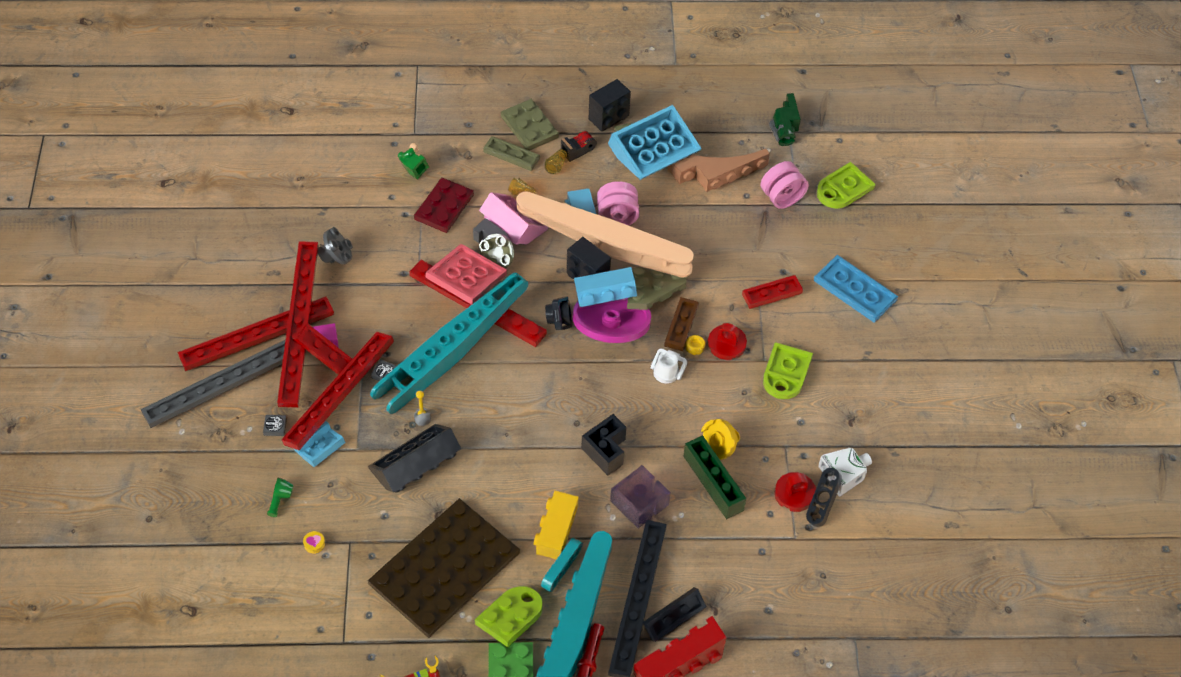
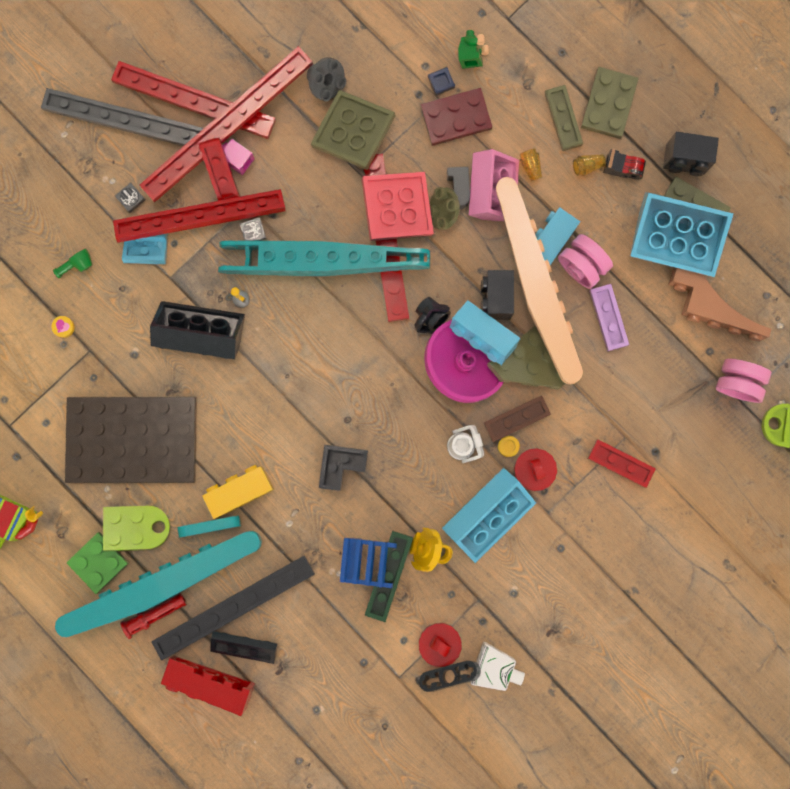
camera: 50 degrees right, 30 degrees up
(387, 260) = (353, 129): none -> olive plate
(411, 195) = (441, 81): none -> dark blue tile
(635, 496) = (317, 534): piece -> none
(667, 225) = (609, 317): none -> lavender plate
(681, 487) = (352, 562): none -> blue plate
(732, 387) = (489, 515): none -> medium azure slope
(786, 368) = (551, 542): lime plate -> none
(855, 288) = (693, 527): dark azure tile -> none

